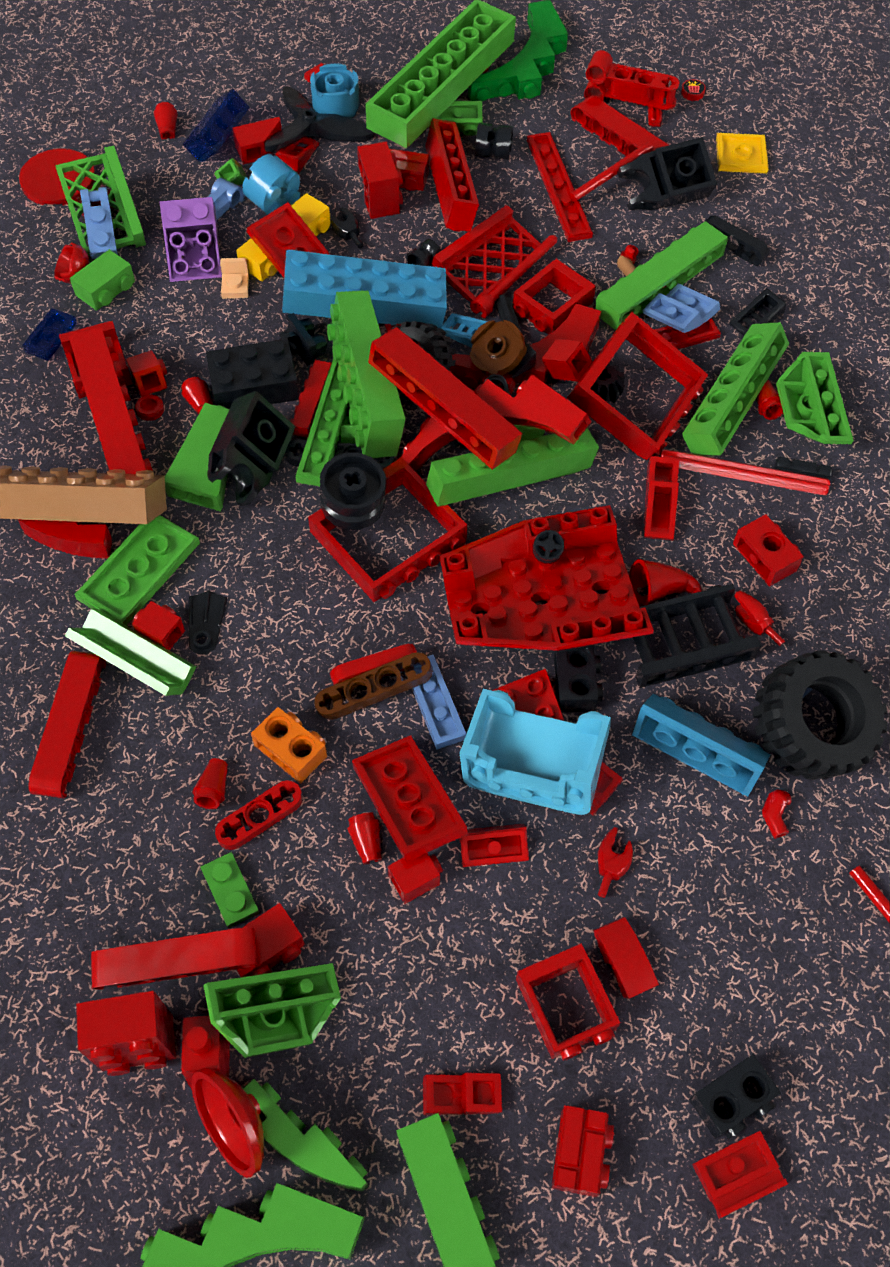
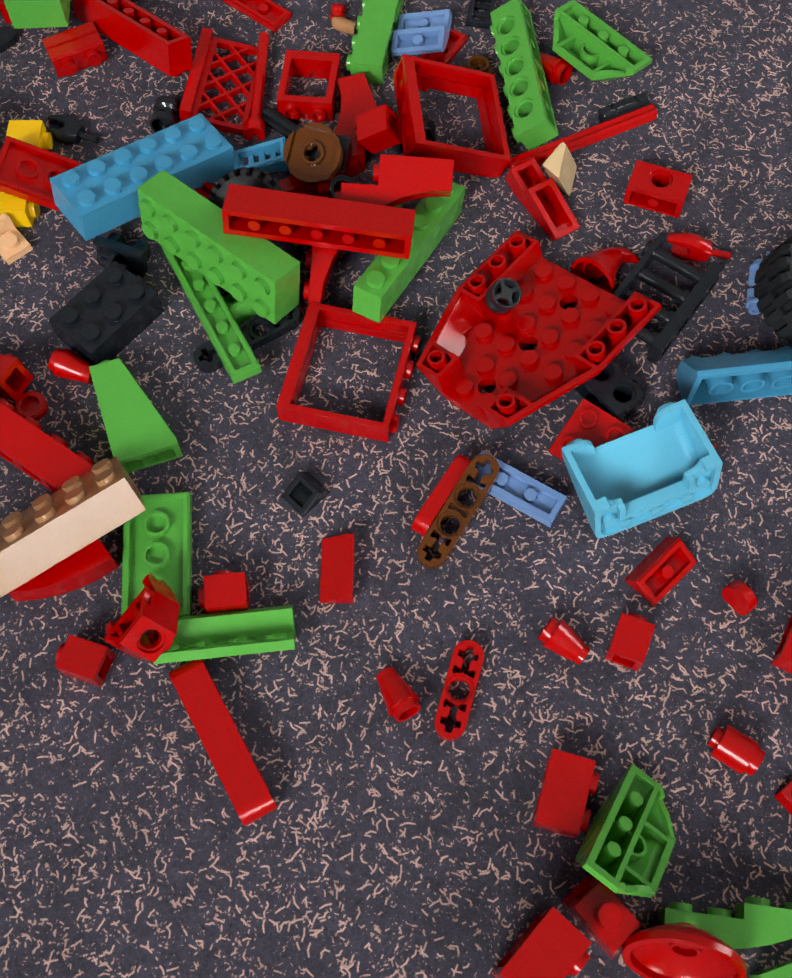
camera: 35 degrees left, 5 degrees up
(28, 603) = (84, 660): none -> red brick
(89, 595) = (151, 610): none -> red piece
(174, 958) = (511, 867): red beam -> none
(205, 620) = (258, 560): black piece -> none
(229, 890) = (492, 771): bright green plate -> none
(250, 445) = (167, 378): black brick -> none
(253, 667) = (337, 569): none -> red slope
(280, 595) = (304, 492): none -> black slope
(284, 749) = (433, 621): orange brick -> none
(310, 398) = (176, 303): red piece -> none
(352, 491) = (302, 356): black wheel -> none
(380, 179) = (70, 66): red brick -> none
(409, 798) = (574, 582): red plate -> none
(420, 1016) = (735, 750): none -> red brick
(533, 909) = (739, 597): none -> red tile
(612, 865) = (759, 518): red hand -> none
(693, 482) = (561, 168): none -> tan slope
(709, 359) = (479, 63): none -> reddish brown plate

